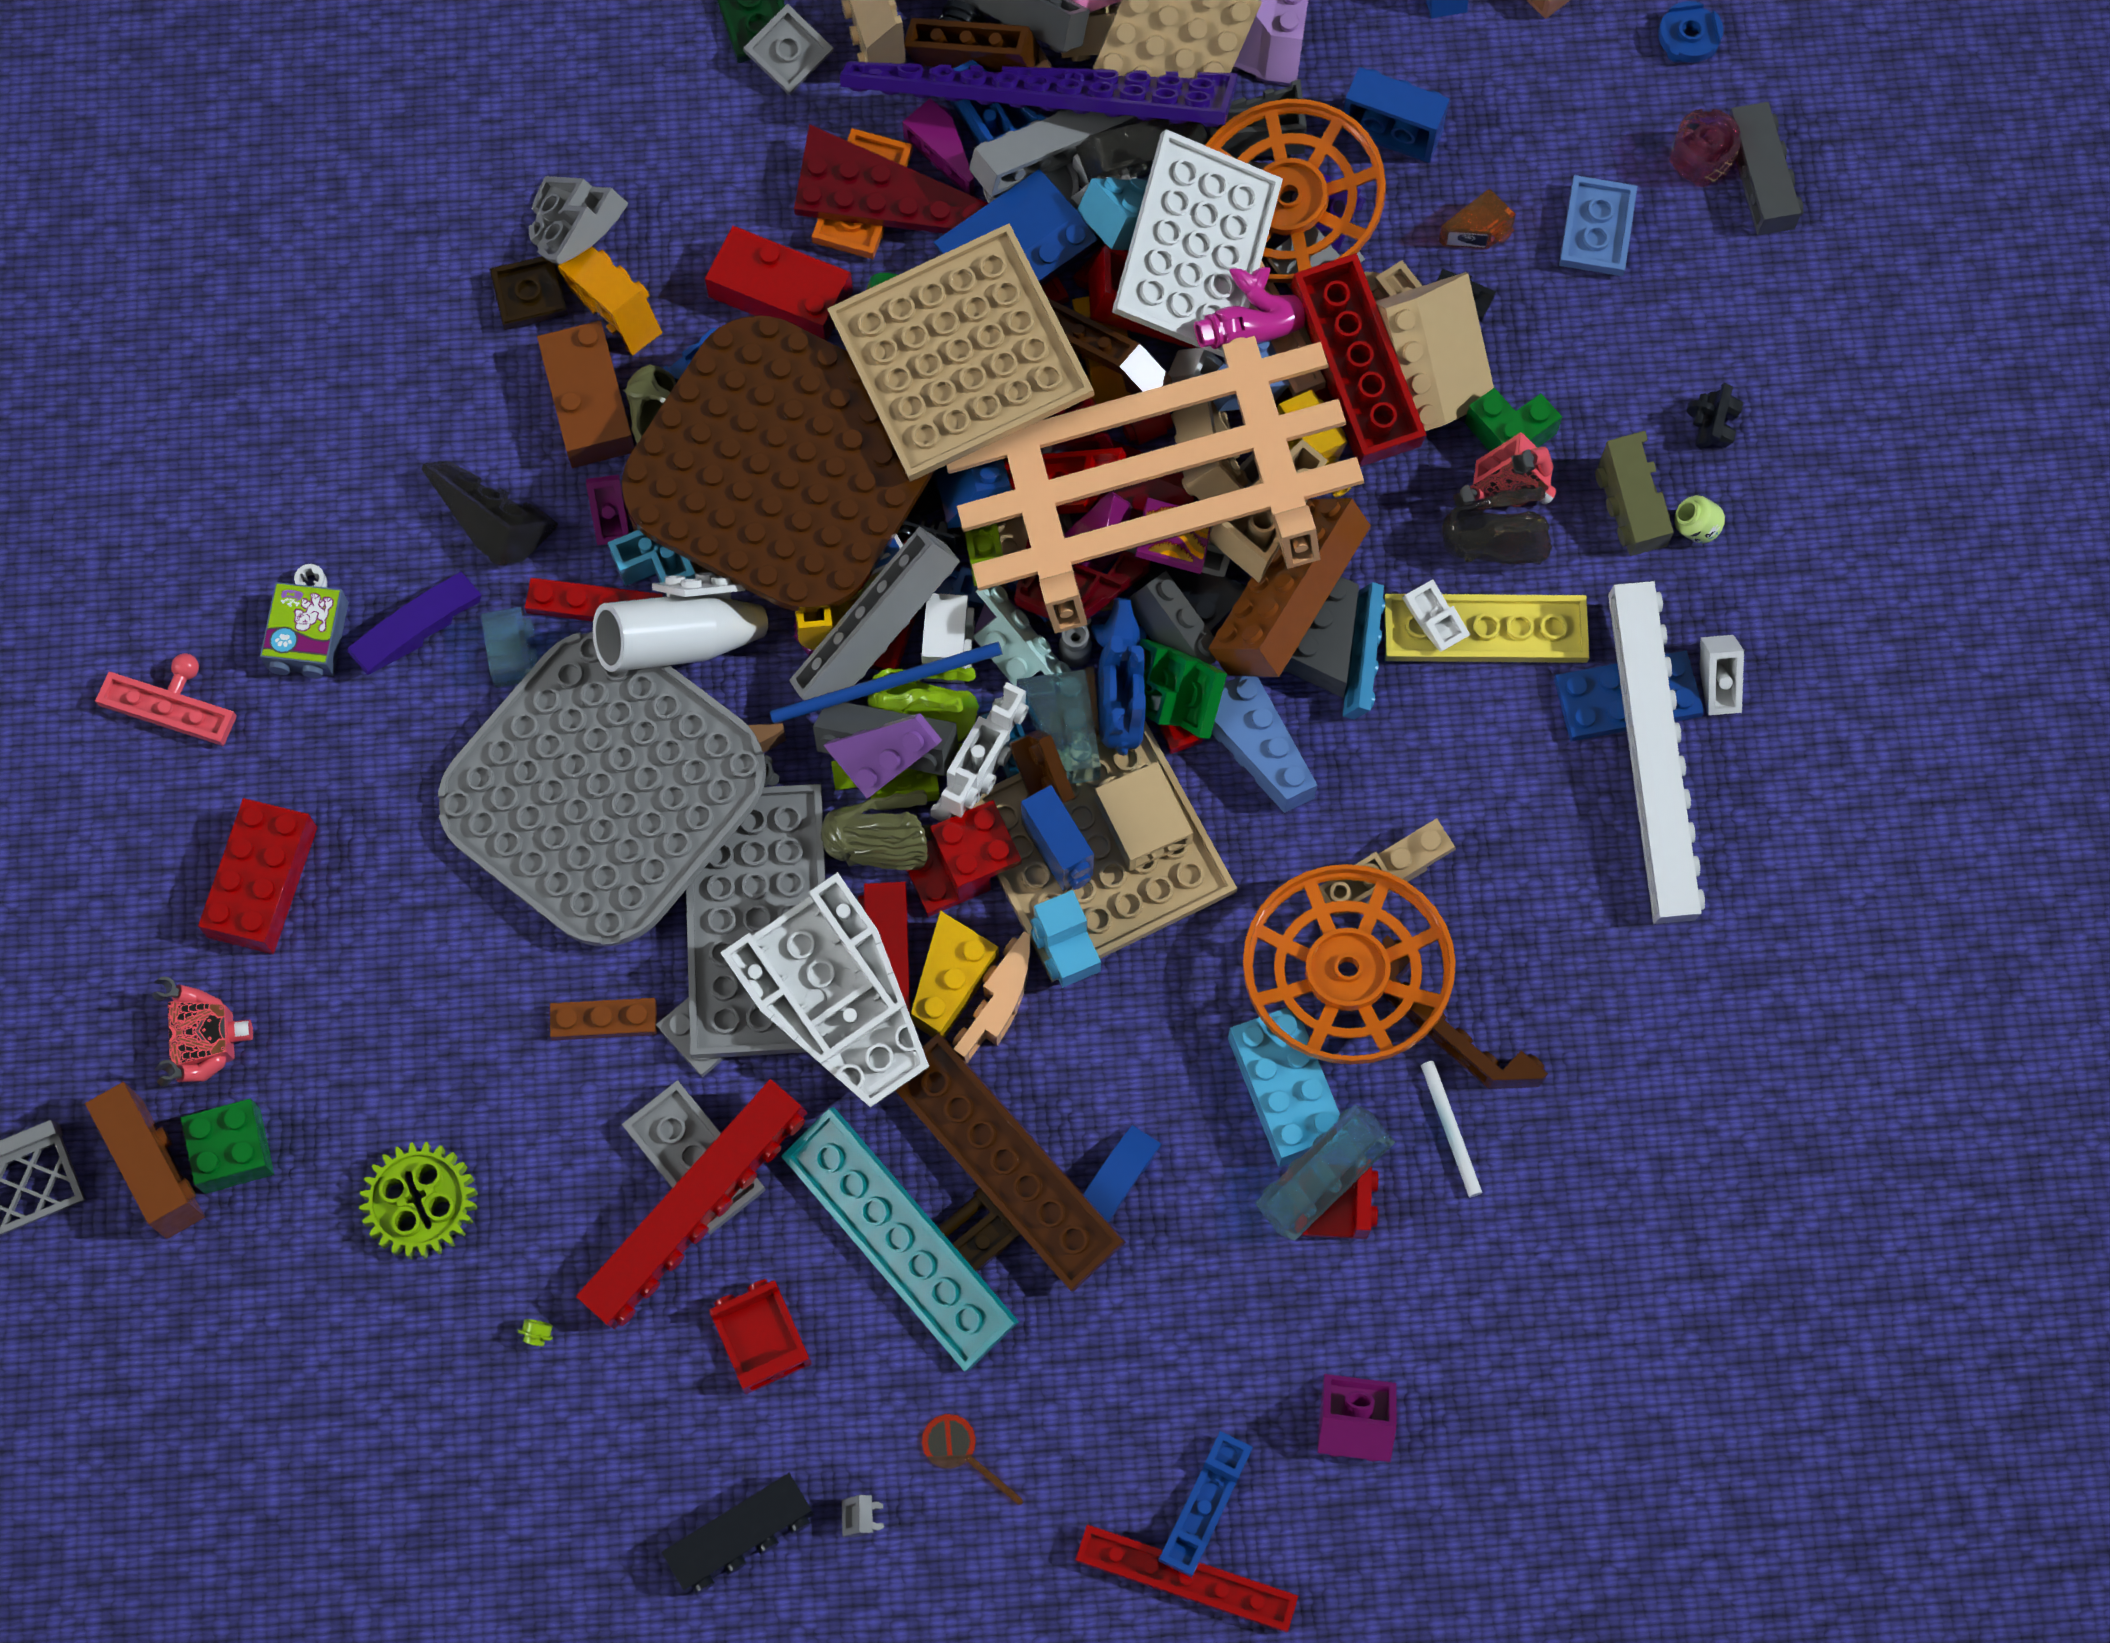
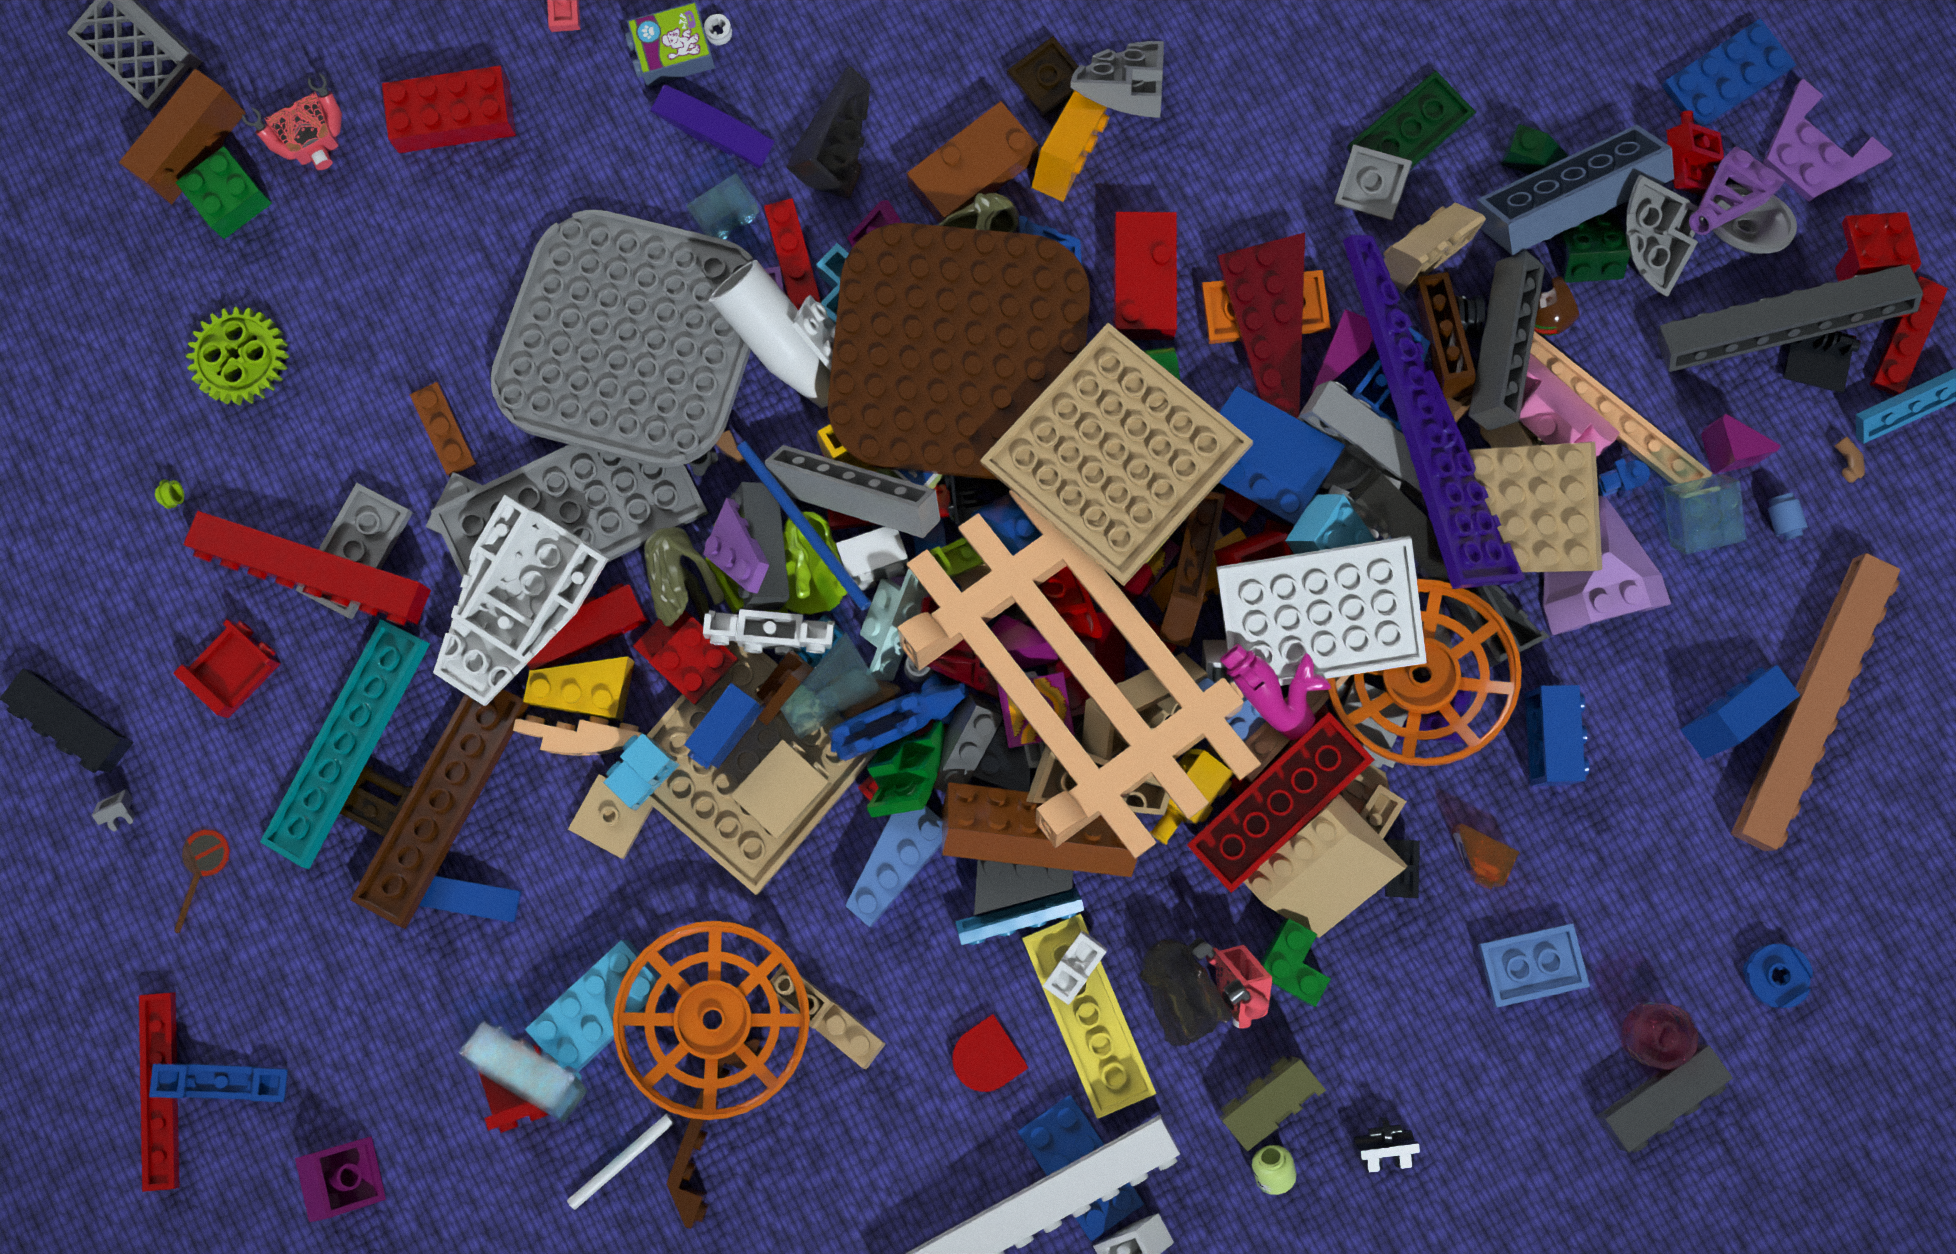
camera: 70 degrees right, 10 degrees up
(1095, 1006) = (608, 820): none -> tan plate
(1487, 738) = (987, 1057): none -> red tile

